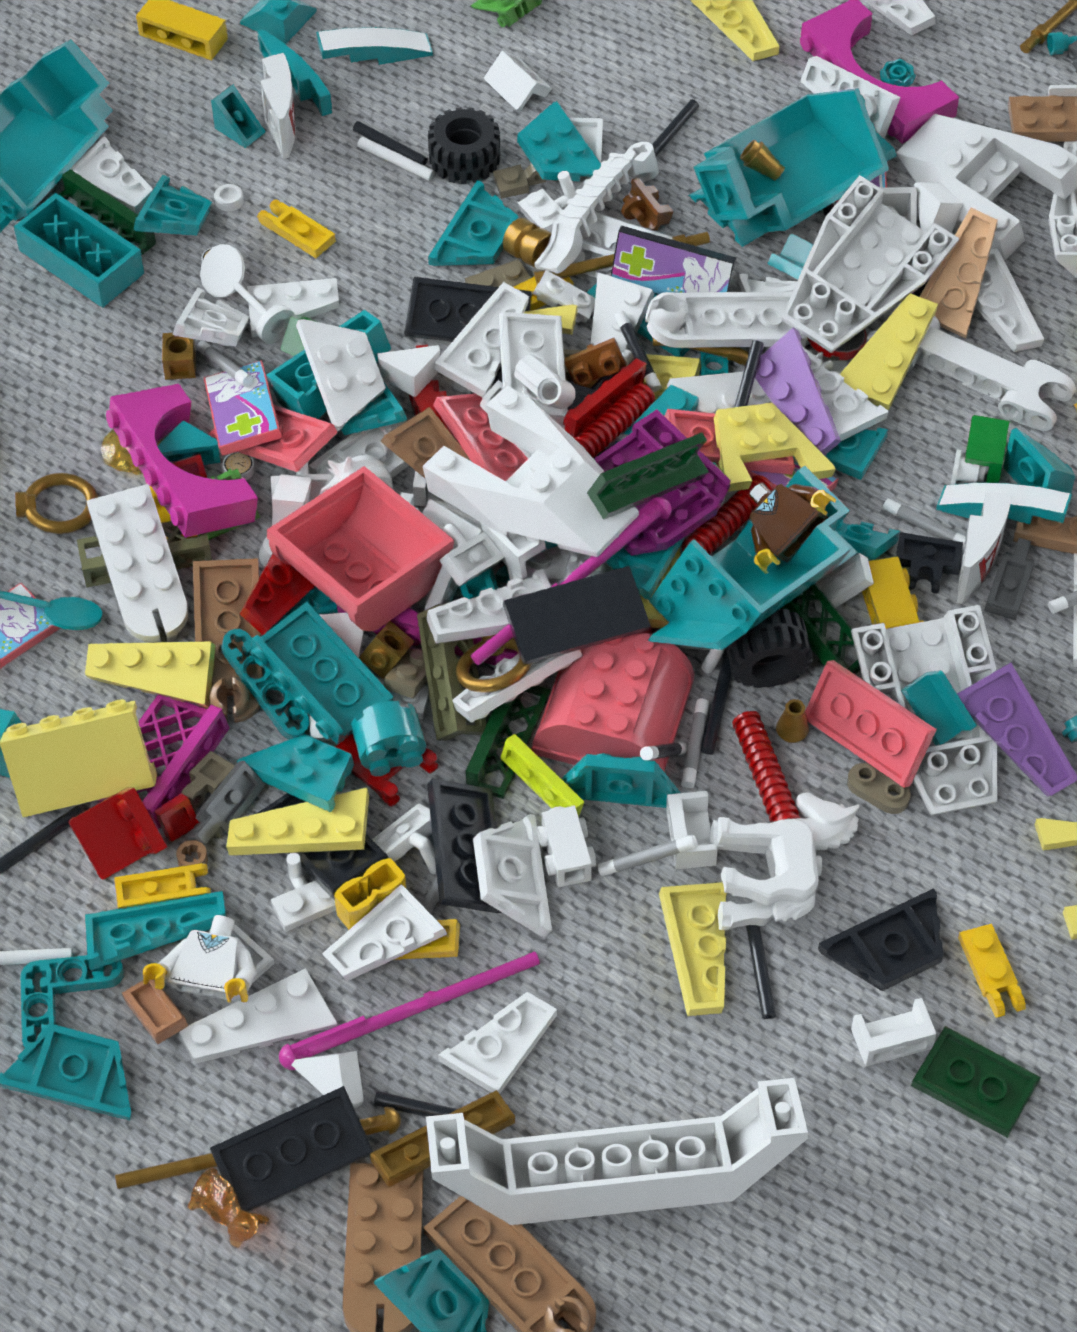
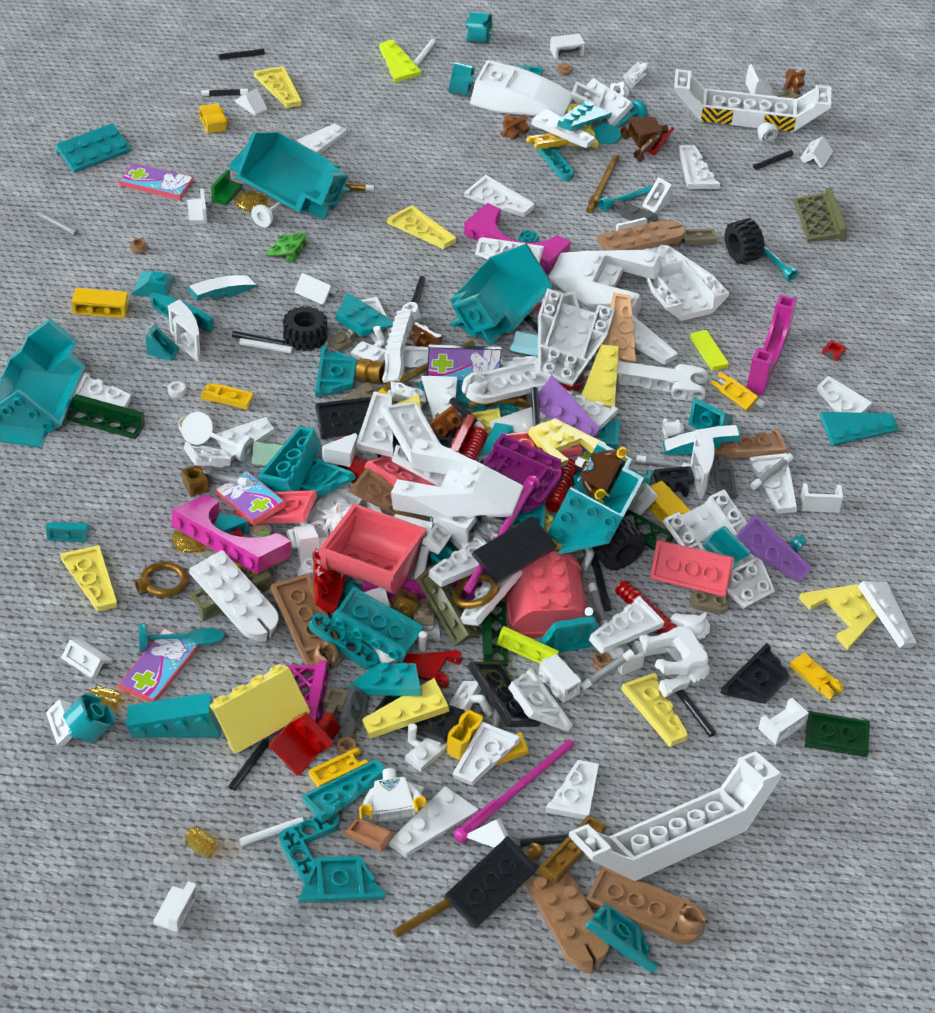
camera: 25 degrees left, 10 degrees down
(79, 250) = (104, 437): teal brick -> none
(159, 668) = (283, 648): light yellow wing -> none
(172, 210) = (151, 402): teal wing -> none
(219, 1201) = (464, 922): clear orange animal -> none
(342, 368) = (305, 459): white wing -> none
(389, 737) = (433, 648): teal brick -> none
(544, 382) = (421, 432): white piece -> none
(648, 477) = (522, 466): dark green fence -> none
(652, 826) = (598, 657): none -> medium nougat bush
(722, 790) = (629, 625): none -> white wing
(759, 158) = (487, 295): pearl gold cone -> none
(793, 722) = (648, 580): pearl gold cone -> none
(937, 206) = (588, 298): white slope -> none
(987, 445) = (679, 413): green panel -> none

